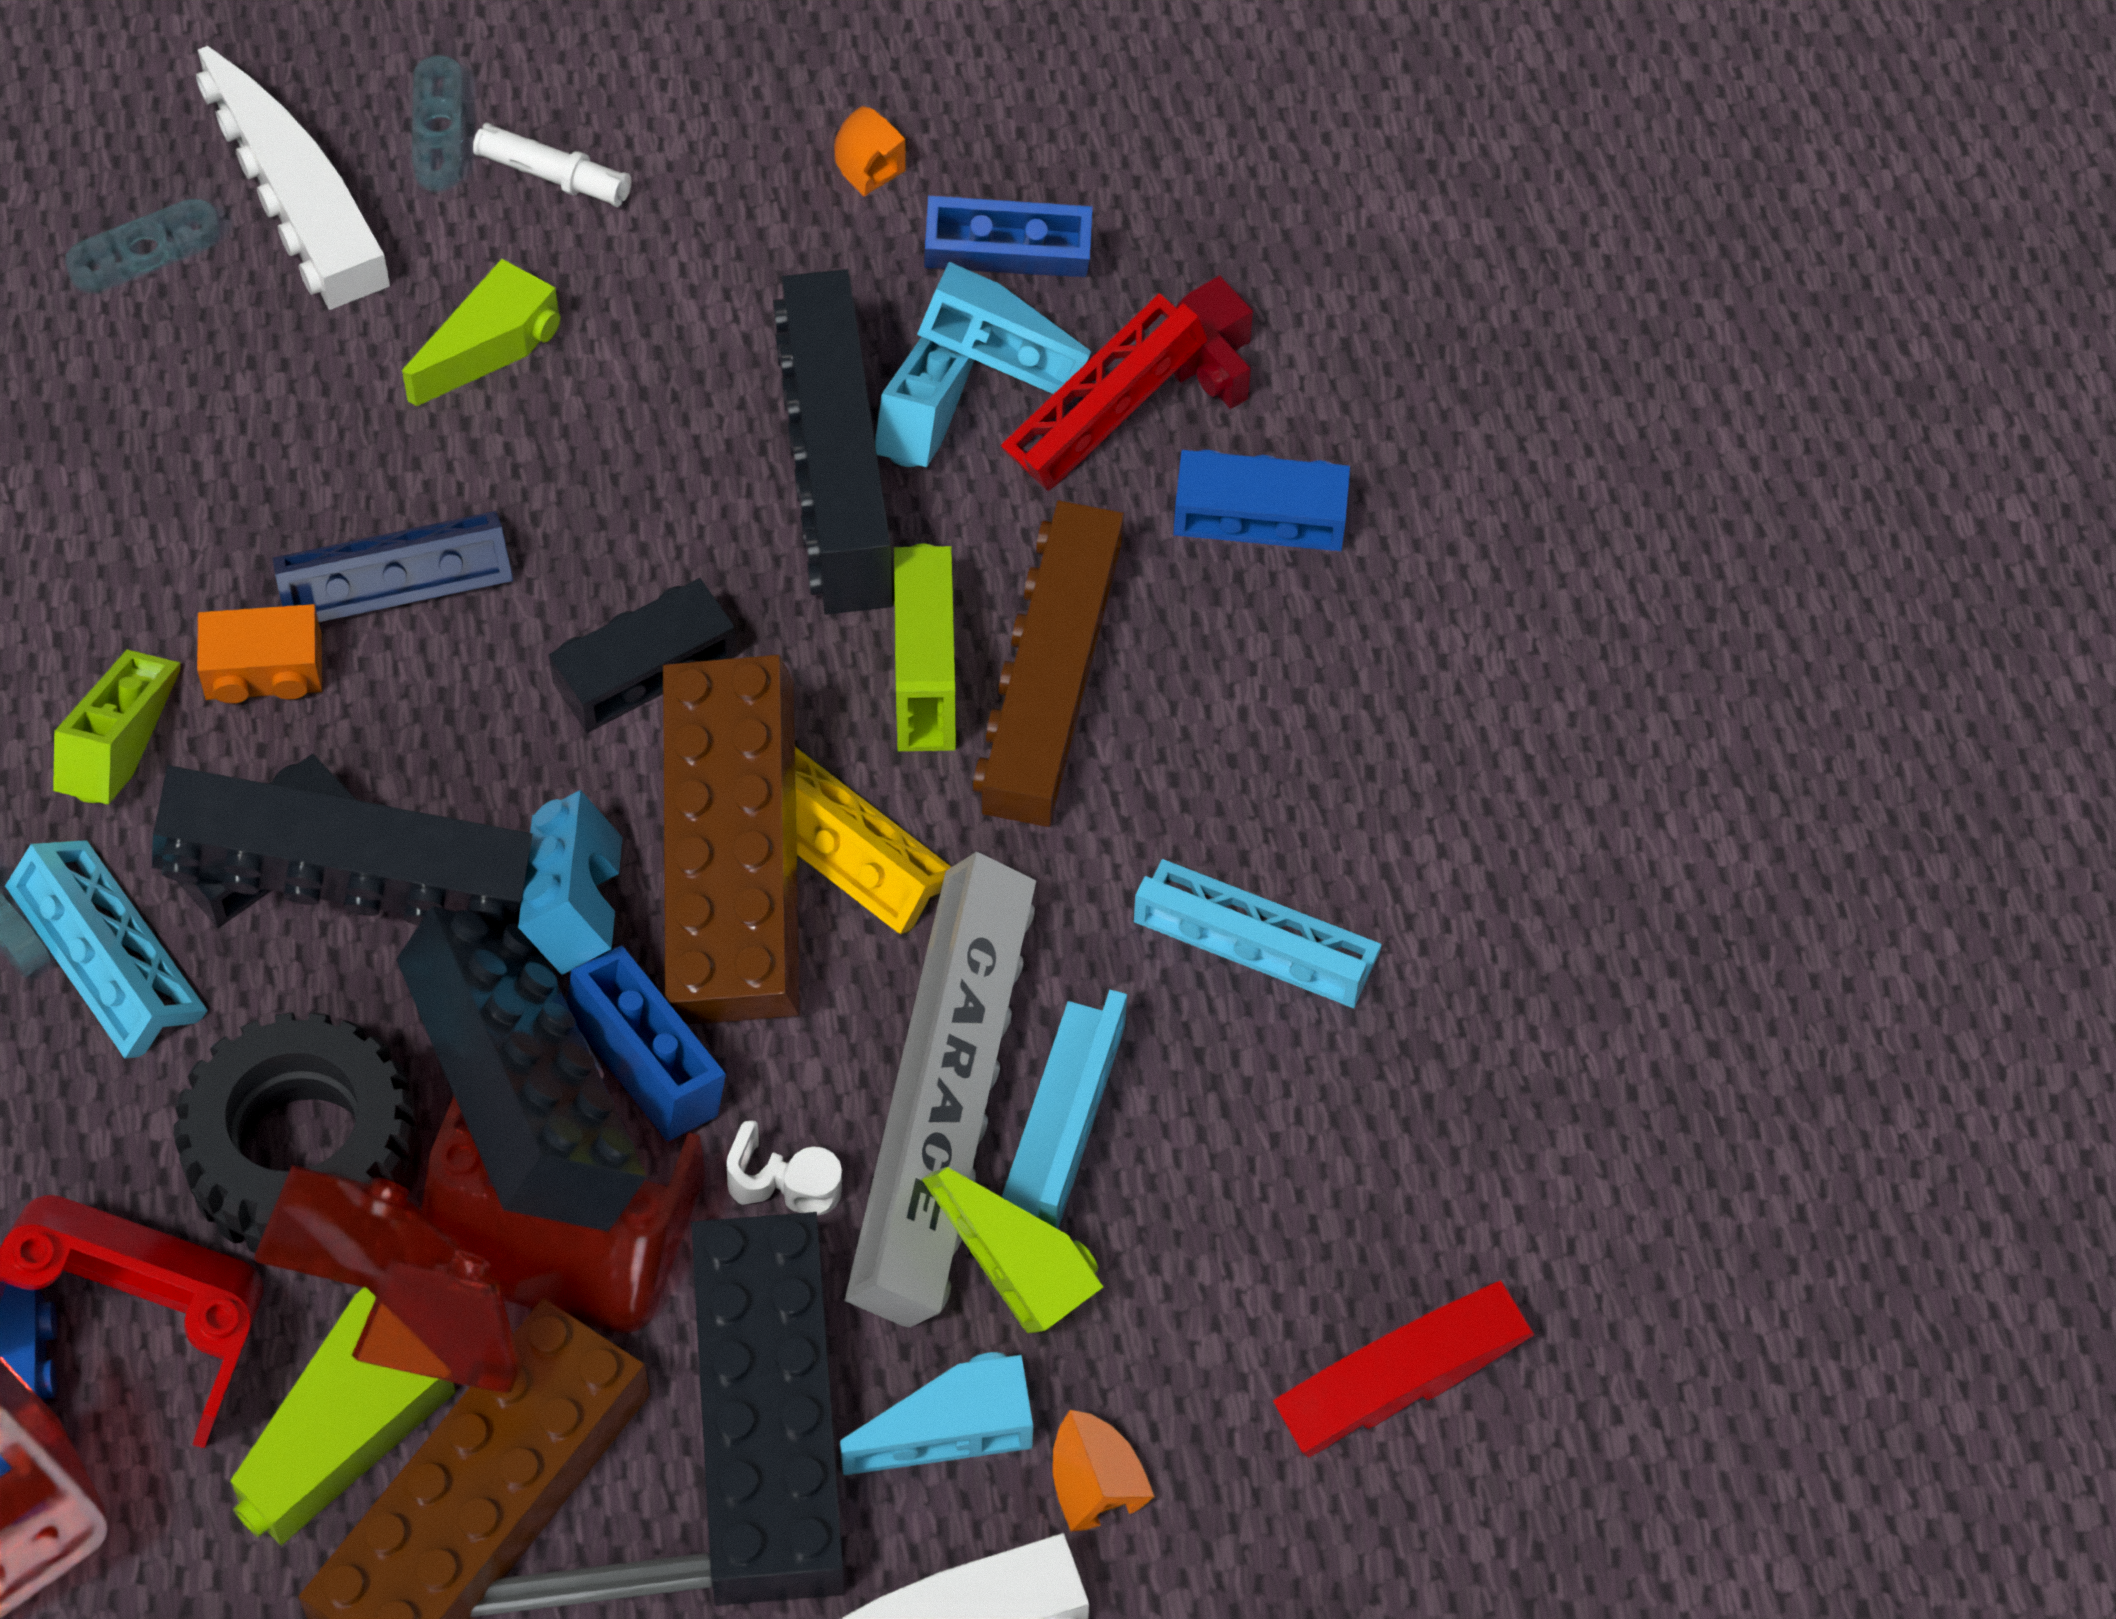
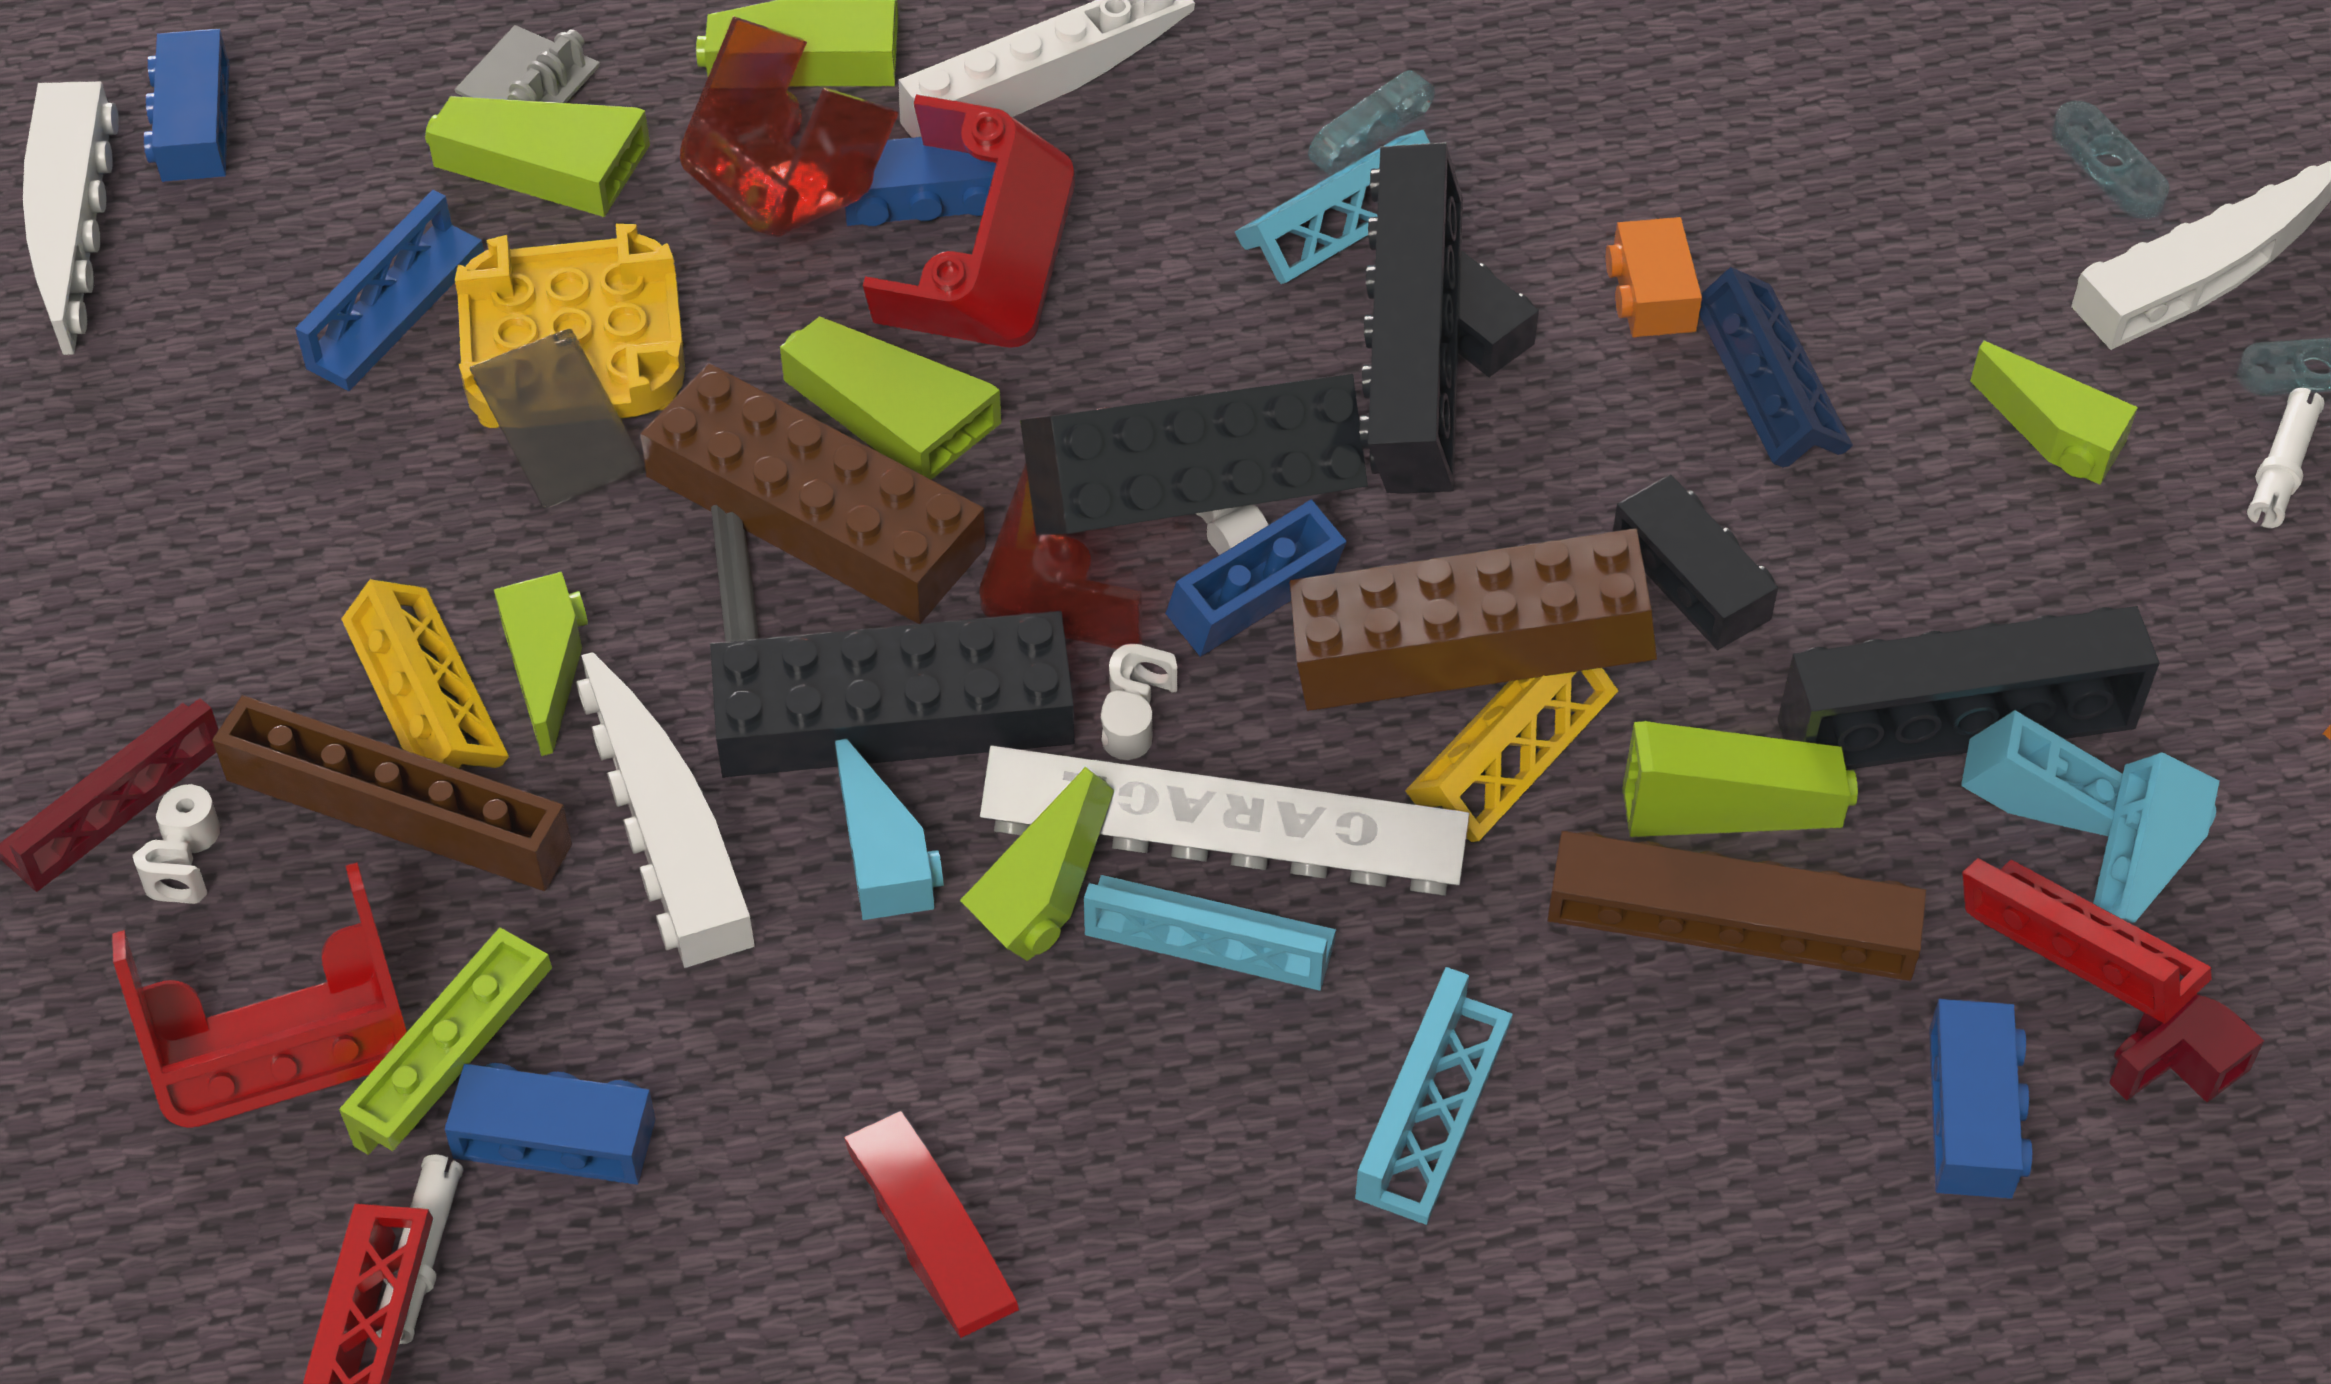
camera: 90 degrees right, 5 degrees down
(111, 727) = (1561, 182): lime slope -> none
(282, 1066) = (1142, 283): black tyre -> none
(433, 1300) = (917, 401): clear red windscreen -> none
(560, 902) = (1370, 481): dark azure arch -> none
(1008, 236) = (2275, 843): blue brick -> none
(1095, 1471) = (830, 964): orange brick -> none

